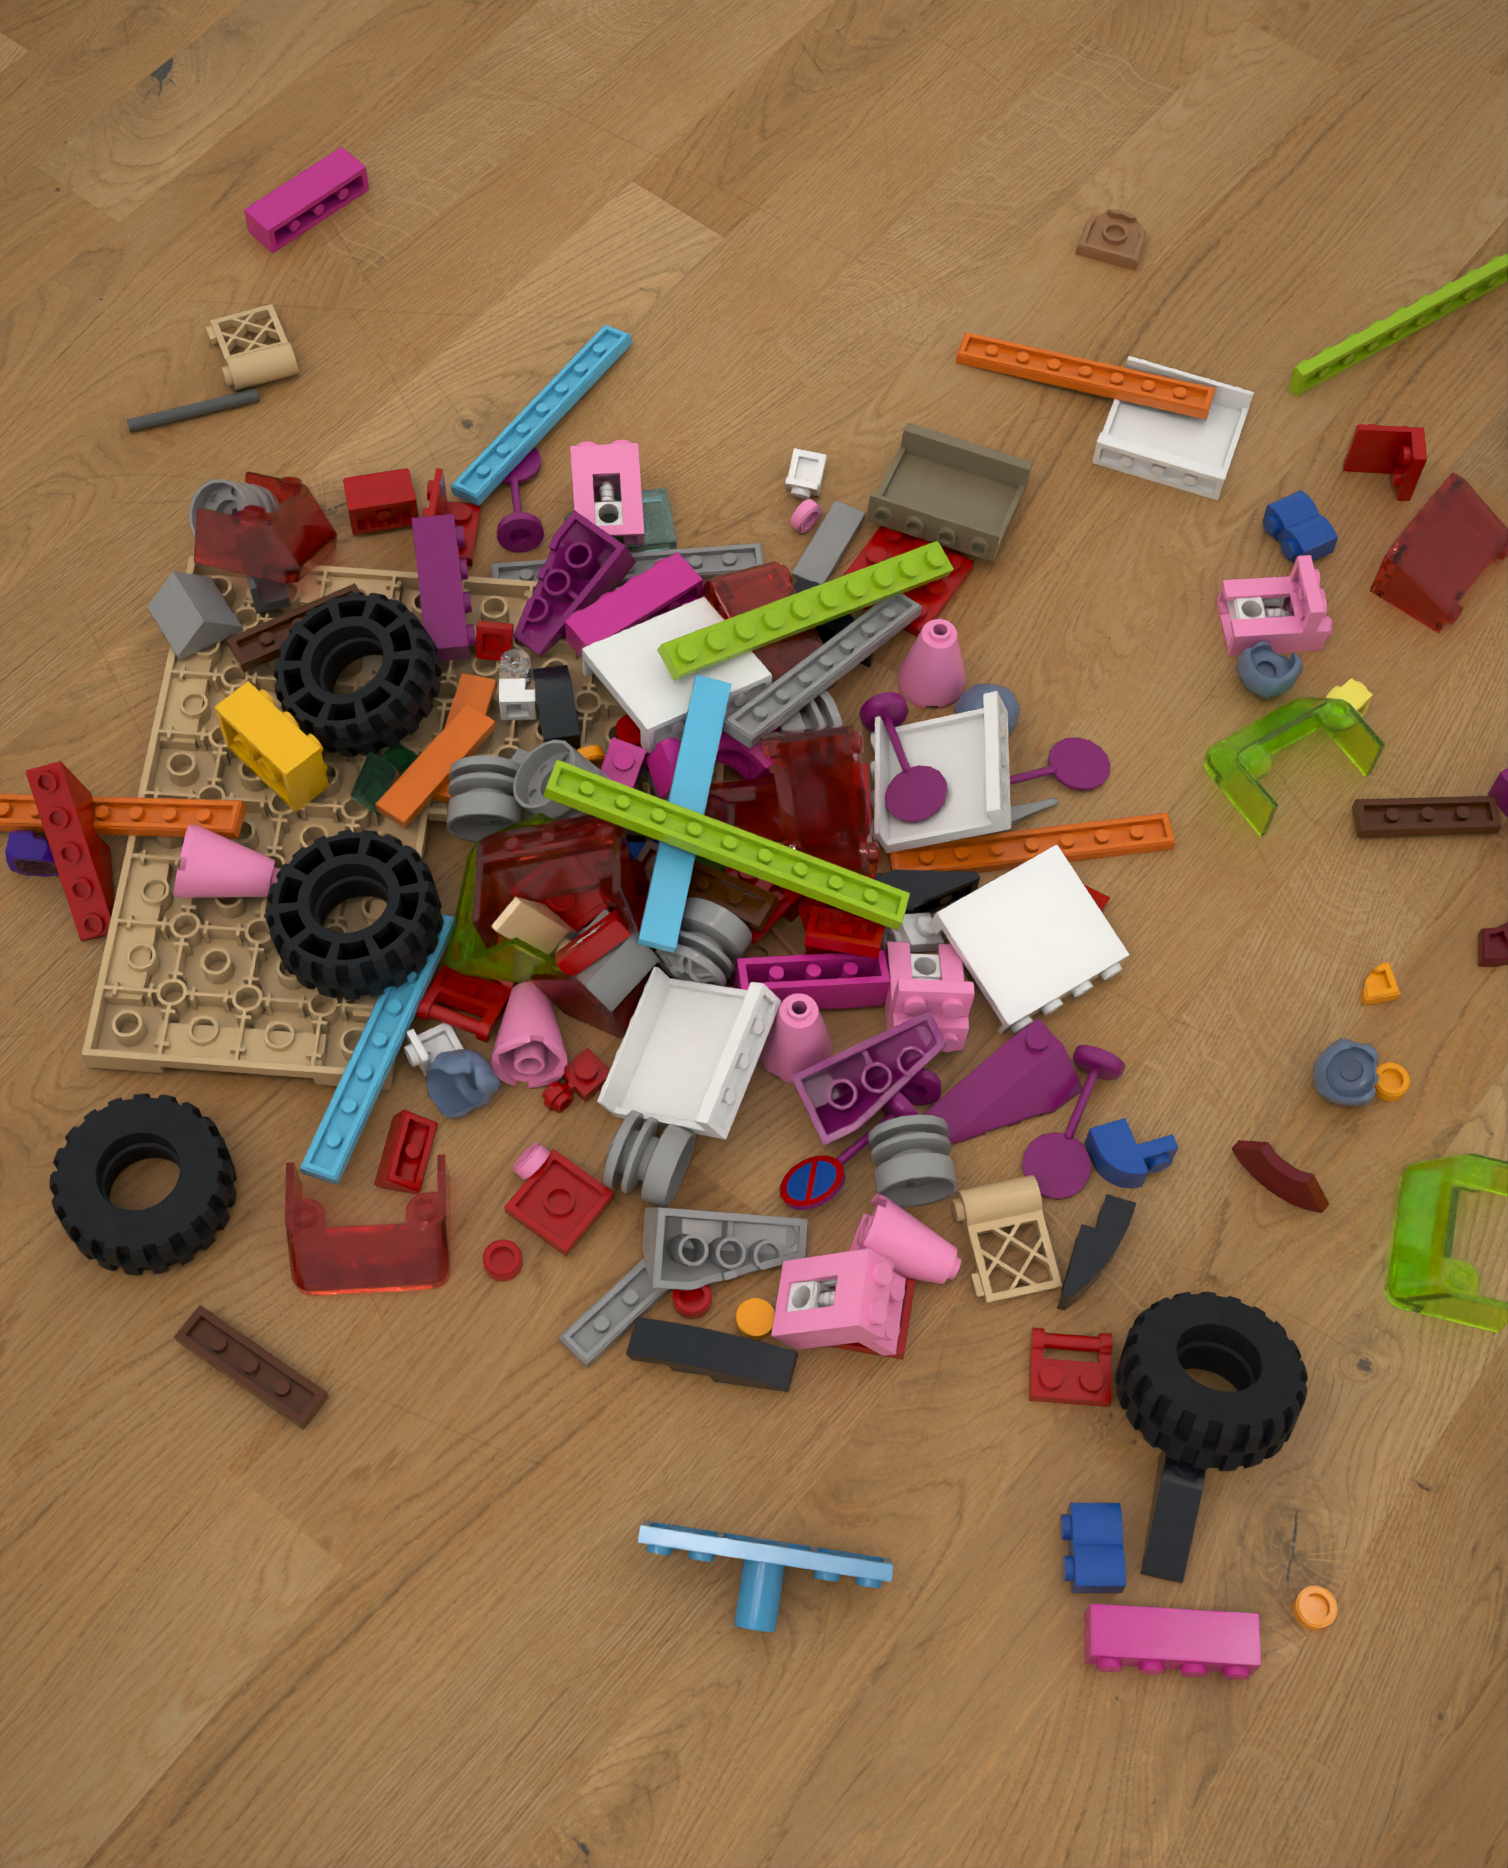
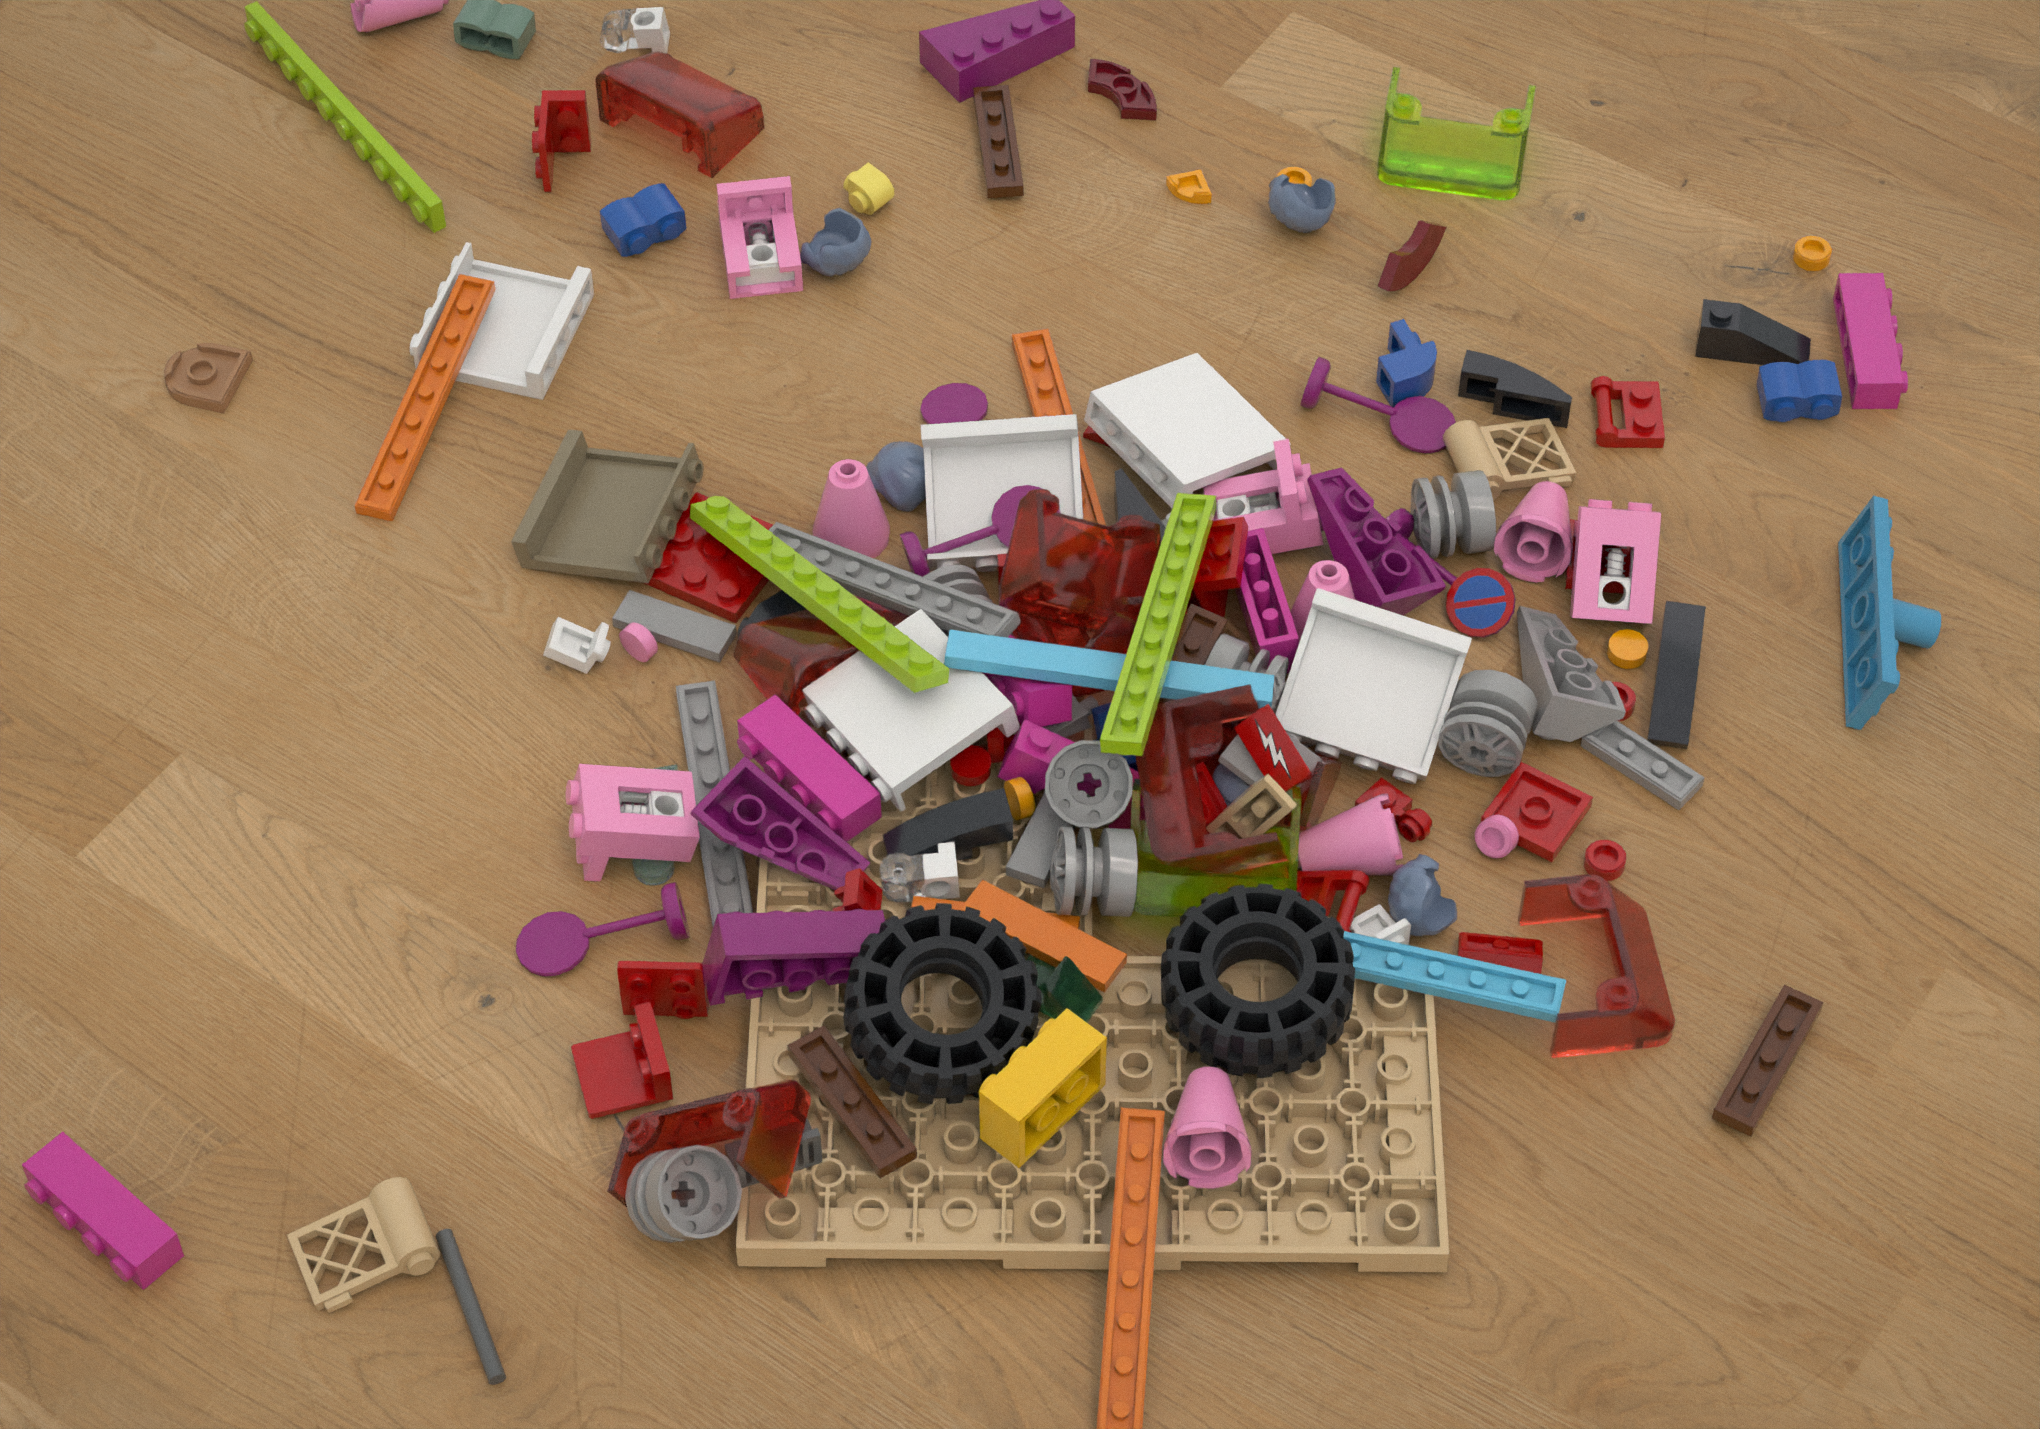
camera: 90 degrees left, 10 degrees down
(30, 854) = (1177, 1366): dark purple rock -> none
(78, 851) = (1188, 1297): red slope -> none
(113, 1141) = (1579, 1224): black tyre -> none
(192, 613) = (838, 1222): light grey slope -> none
(541, 415) = (482, 910): medium azure tile -> none
(1014, 1083) = (1335, 440): magenta wedge -> none
(1197, 1421) = (1653, 322): black tyre -> none
(1245, 755) = (931, 263): clear neon green windscreen -> none

